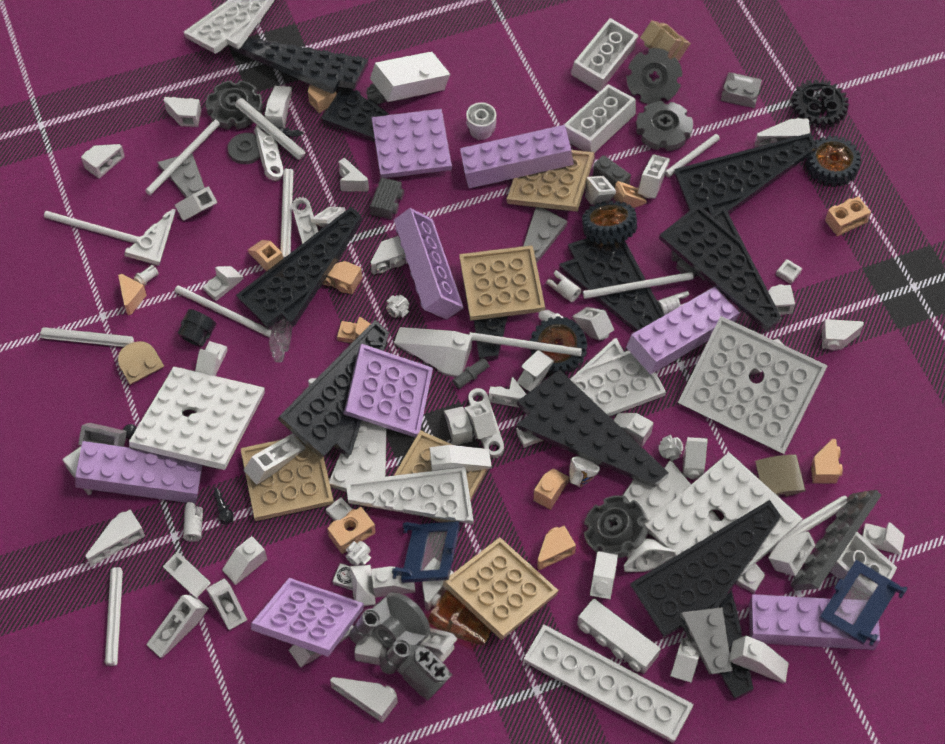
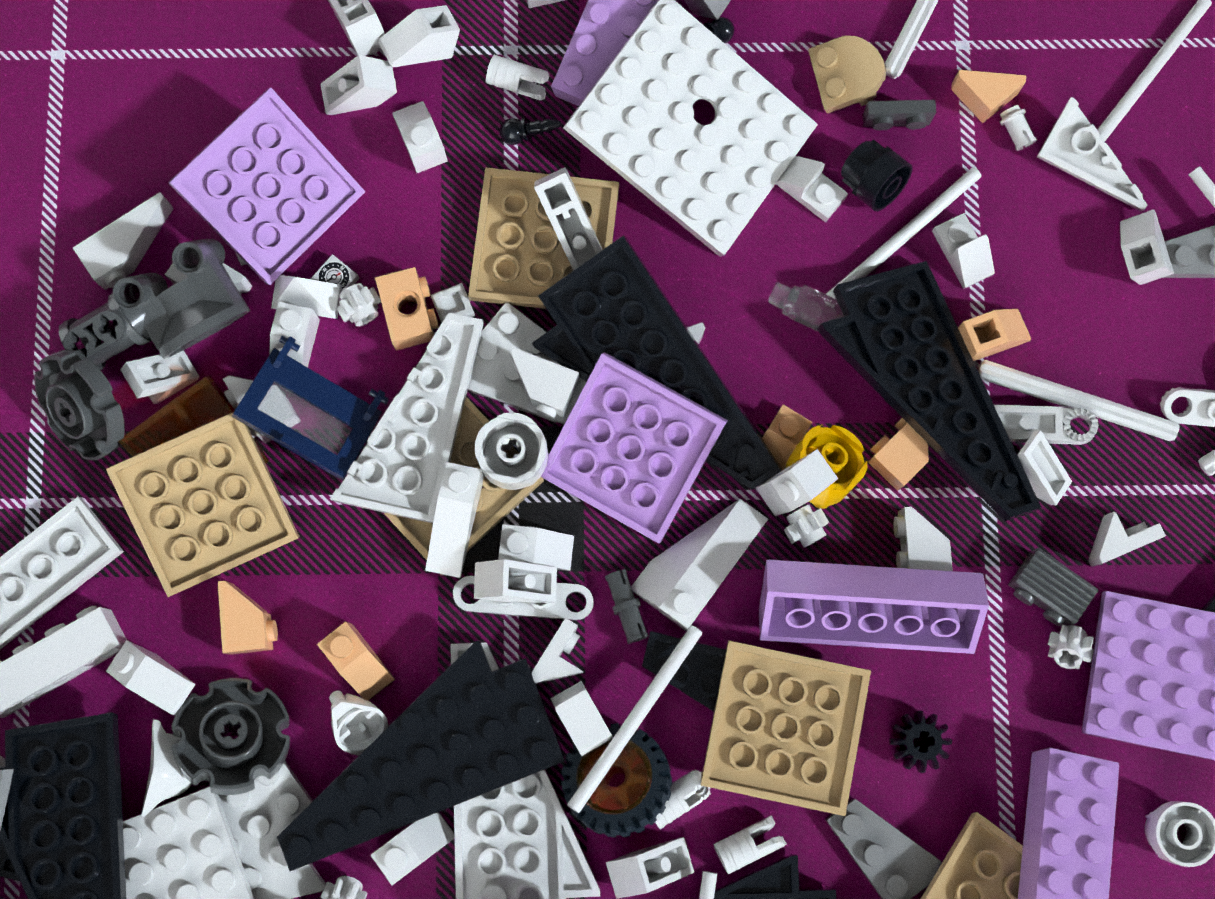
camera: 110 degrees right, 20 degrees up
(155, 322) = (908, 113): none -> dark grey plate
(364, 302) = (842, 453): none -> yellow brick
(370, 440) = (546, 383): none -> white slope
(382, 304) = (797, 484): none -> white slope
(412, 183) = (1070, 647): none -> white gear
(413, 441) = (500, 435): none -> white brick
(473, 667) = (79, 404): none -> dark grey piece
(483, 231) = (929, 751): none -> black gear

